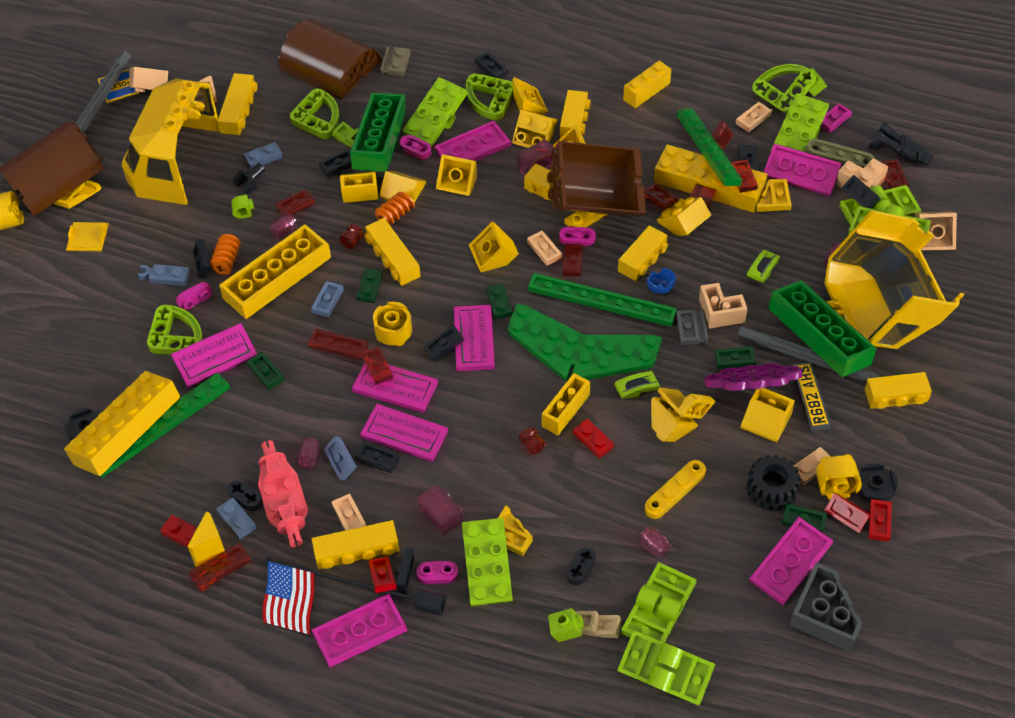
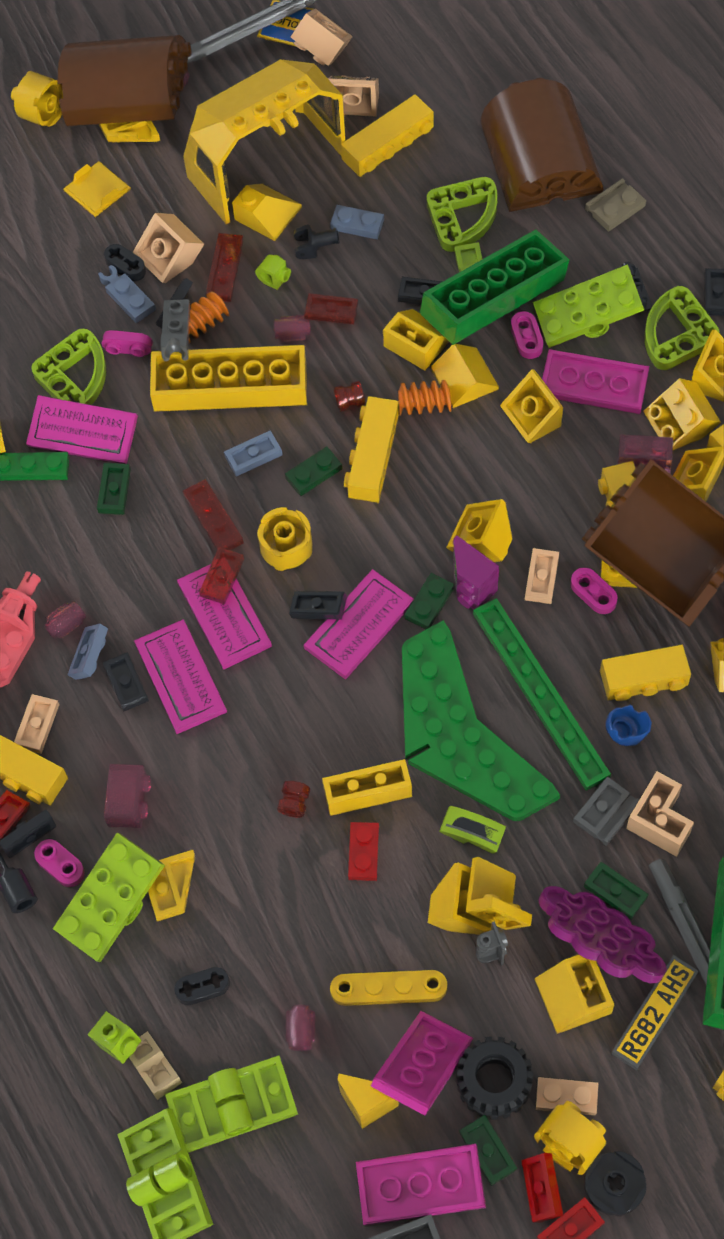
camera: 45 degrees right, 10 degrees up
(146, 258) = (127, 259): none -> black beam
(166, 235) = (167, 246): none -> light nougat slope
(204, 183) = (264, 210): none -> yellow slope
(209, 221) = (225, 265): none -> clear red plate
(223, 263) = (175, 328): none -> dark grey plate
(510, 268) = (474, 575): none -> magenta slope
(573, 260) = (558, 616): clear red plate -> none
(708, 423) = (492, 945): none -> dark grey hinge
(723, 541) = (363, 1100): none -> yellow slope
(735, 500) = (422, 1063): none -> dark pink tile

